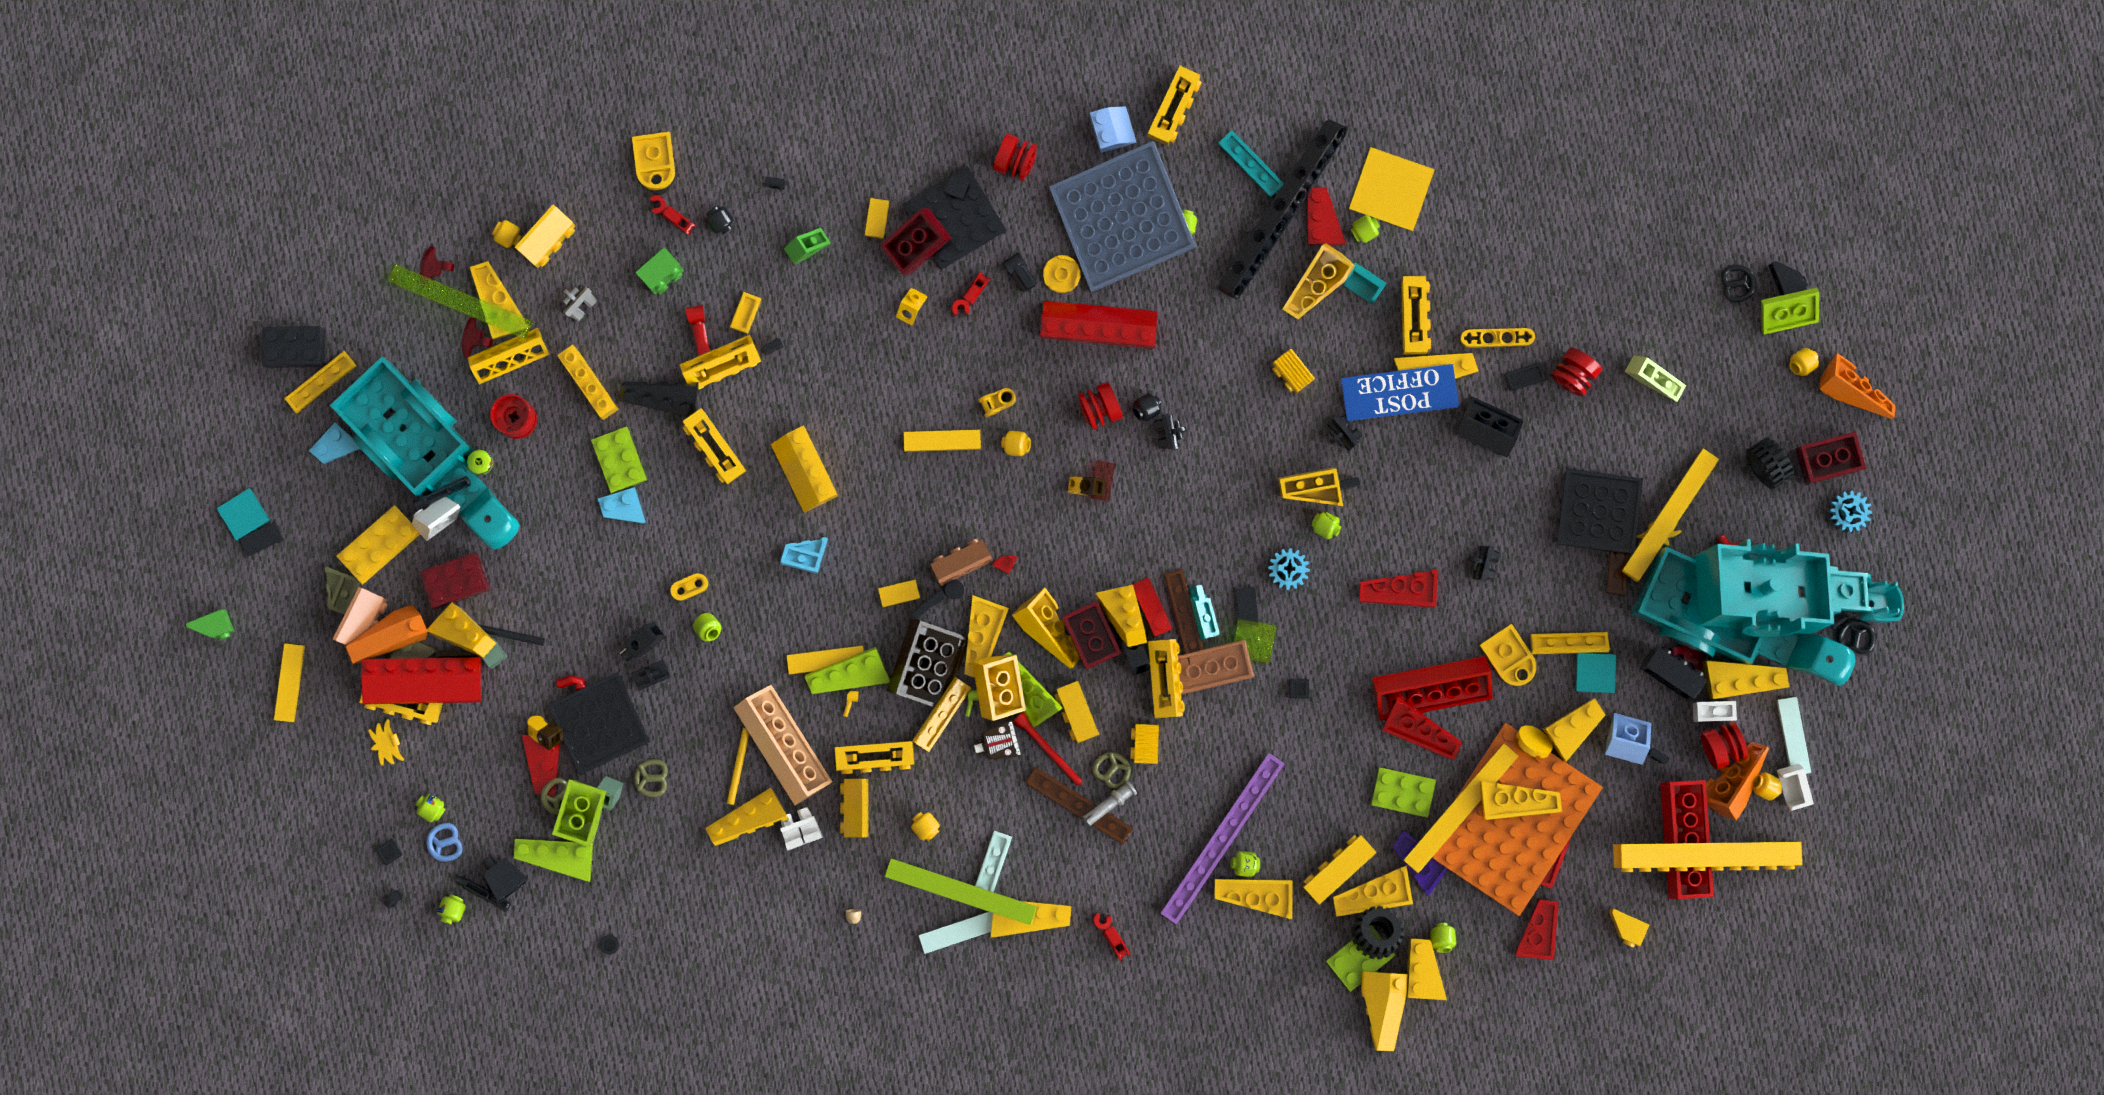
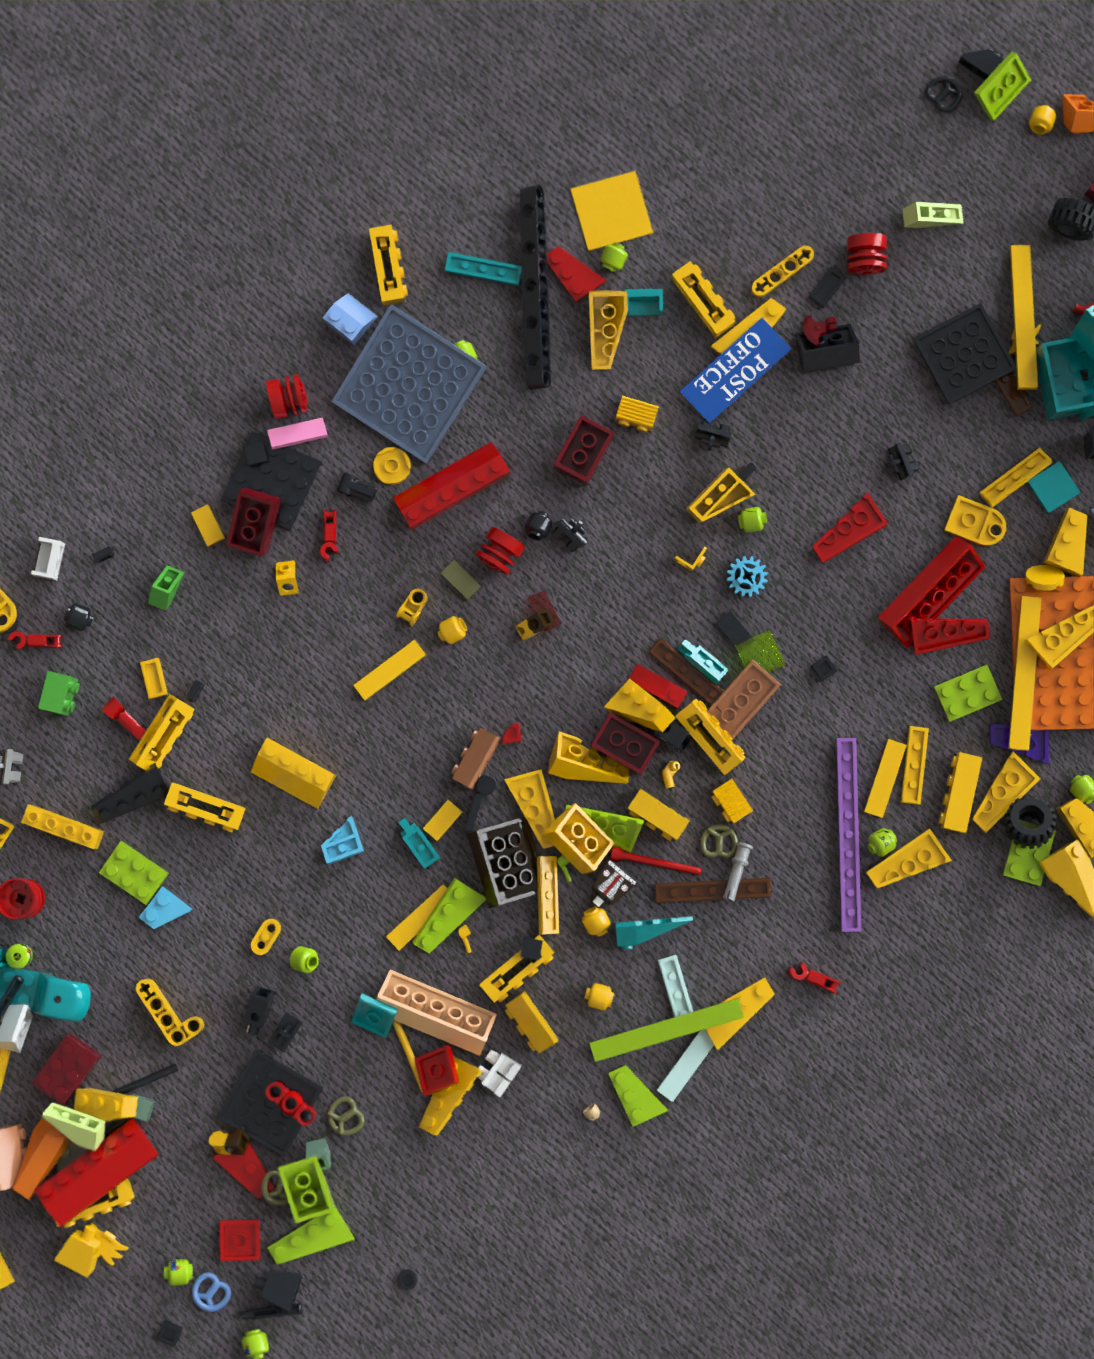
camera: 30 degrees left, 0 degrees up
(364, 735) = (80, 1251): none -> yellow torso
(432, 633) = (77, 1126): none -> yellowish green slope
(497, 817) = (240, 1240): none -> red plate
(567, 588) = (165, 1009): none -> yellow beam
(571, 680) = (221, 1083): red arm -> none
(609, 728) = (300, 1104): none -> red piece
(728, 155) = (49, 559): none -> white panel
(732, 712) = (374, 1015): none -> teal tile
(751, 792) = (436, 1070): none -> red plate
(865, 598) = (418, 843): none -> teal hinge
(897, 747) = (531, 948): none -> black tile
(897, 928) = (635, 1096): none -> lime wing
(965, 763) = (596, 921): none -> yellow head
(994, 796) = (636, 932): none -> teal wedge
(1002, 193) = (297, 433): none -> bright pink tile
(1052, 407) = (460, 579): none -> olive tile
(1110, 684) = (668, 773): none -> yellow arm
(1227, 371) = (583, 450): none -> dark red brick
(1257, 529) = (698, 562): none -> yellow bracket
(1285, 814) = (885, 778): none -> yellow tile
(1317, 820) = (914, 765): none -> yellow tile
(1488, 404) = (814, 330): none -> dark red piece

